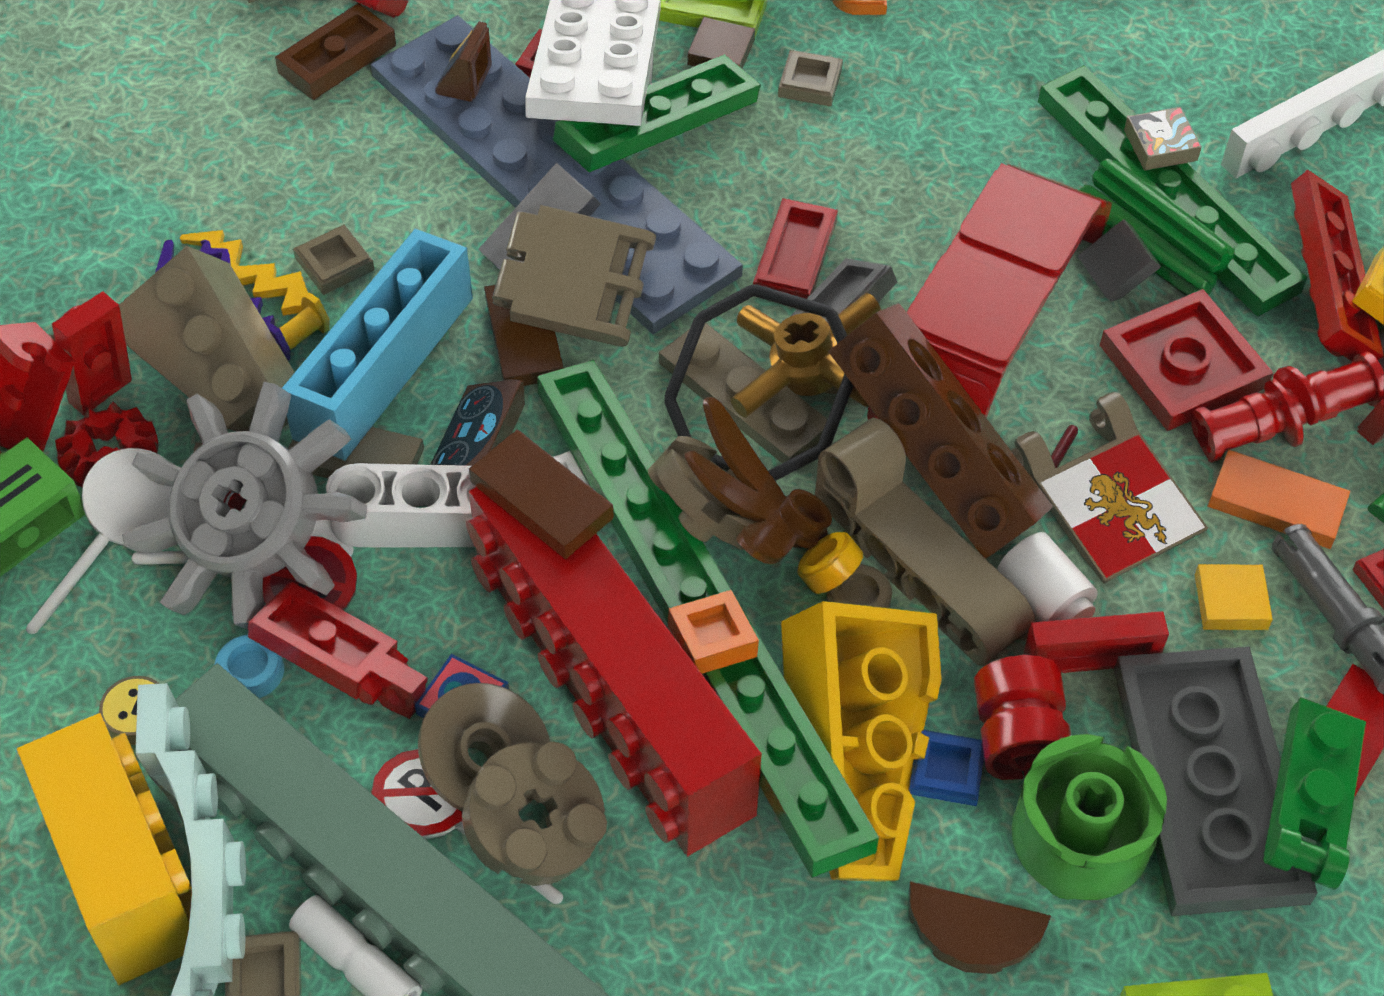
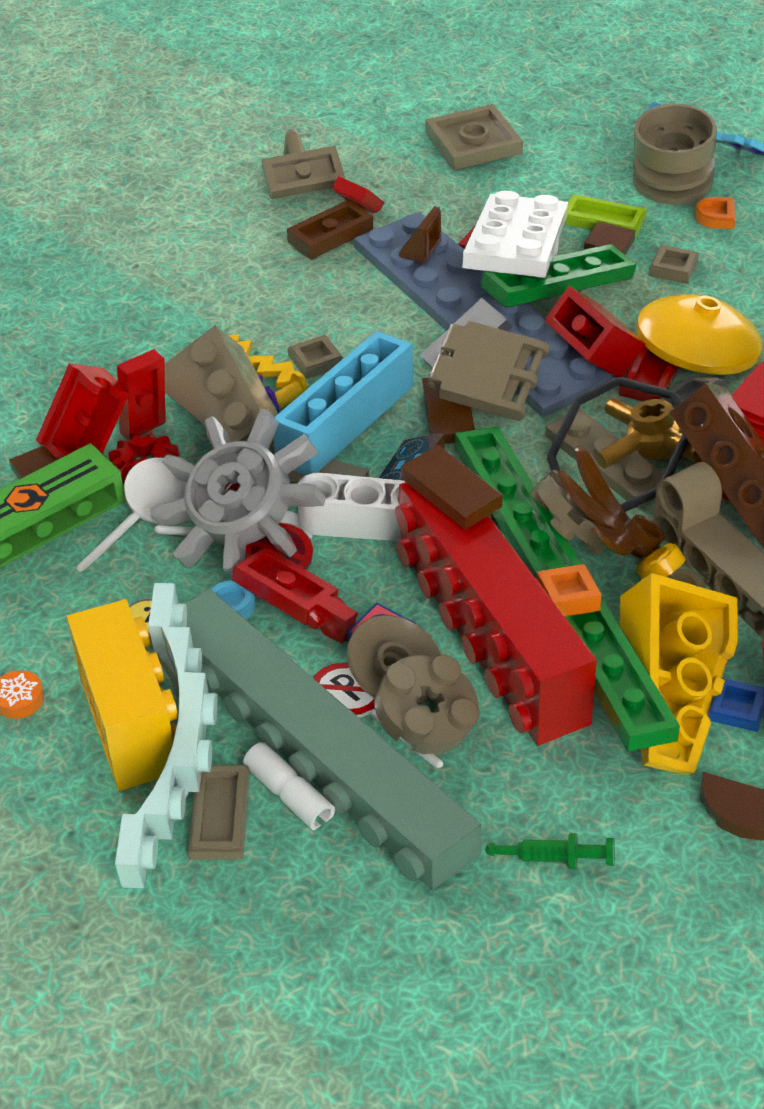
camera: 10 degrees right, 10 degrees down
(713, 203) = (594, 332): none -> red brick
(853, 192) = (699, 334): none -> yellow dish

